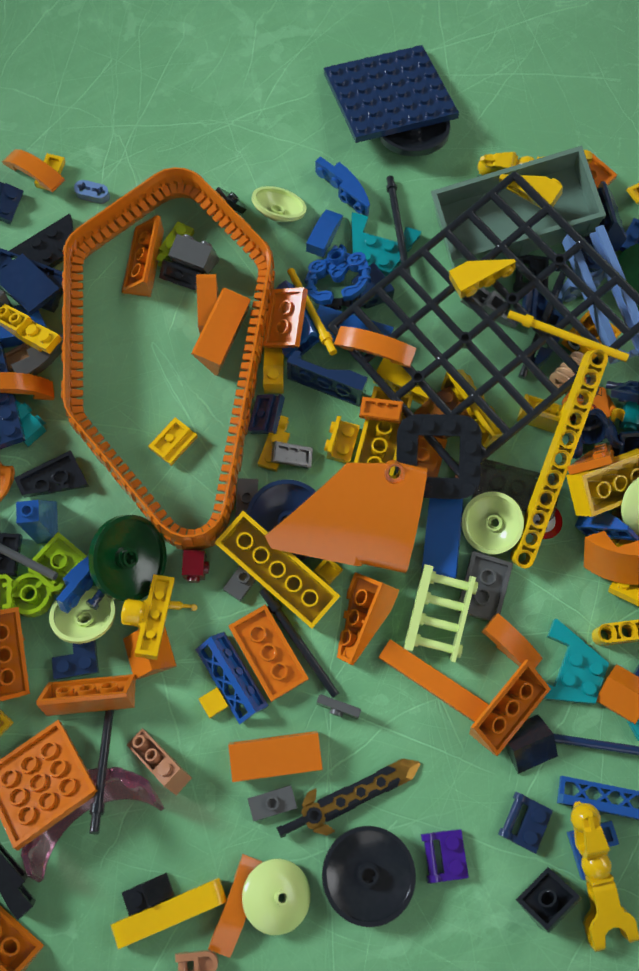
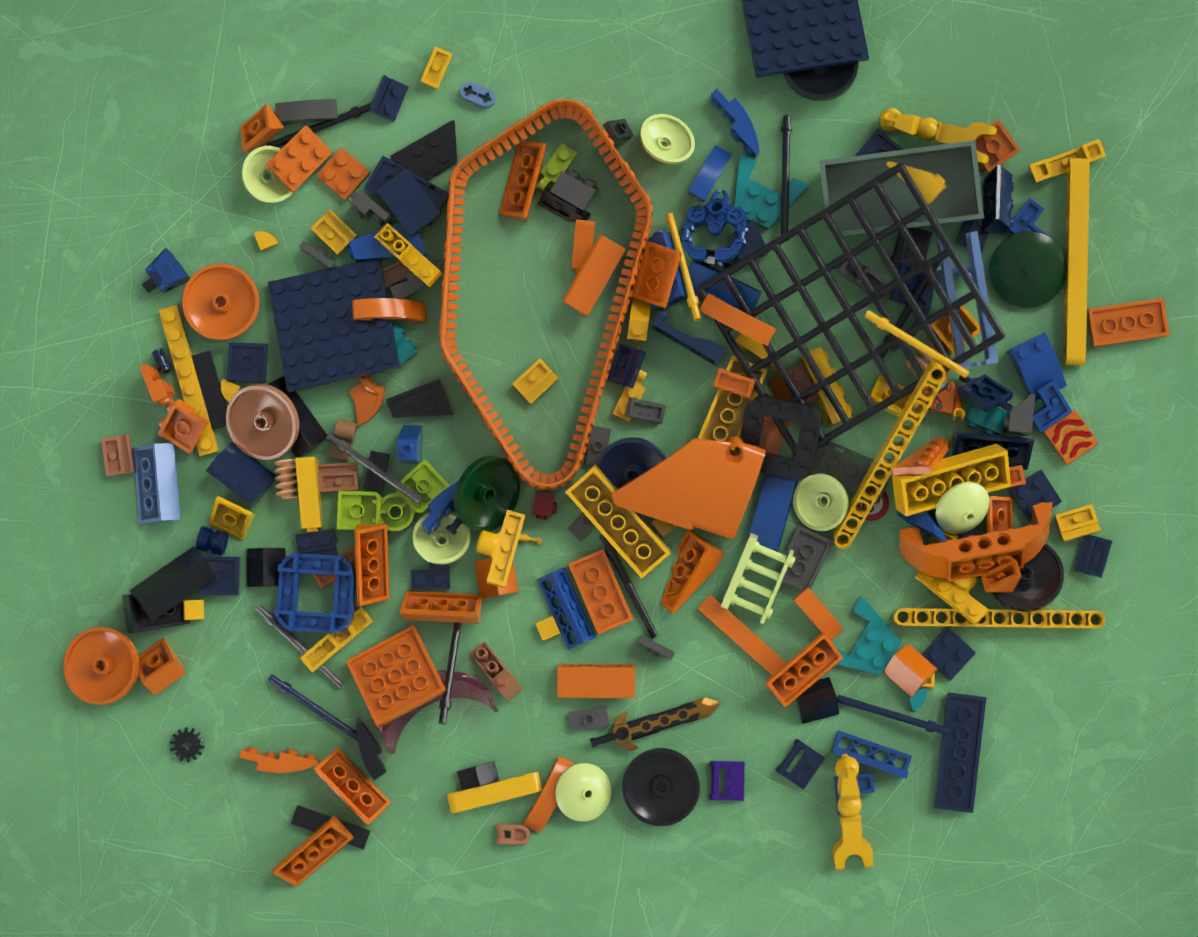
camera: 10 degrees right, 15 degrees up
(35, 168) = (420, 64): orange slope -> none
(342, 441) = (695, 401): yellow bracket -> none
(477, 274) = (840, 269): yellow slope -> none
(548, 900) = (805, 825): black slope -> none
(596, 430) = (935, 424): dark blue hair -> none

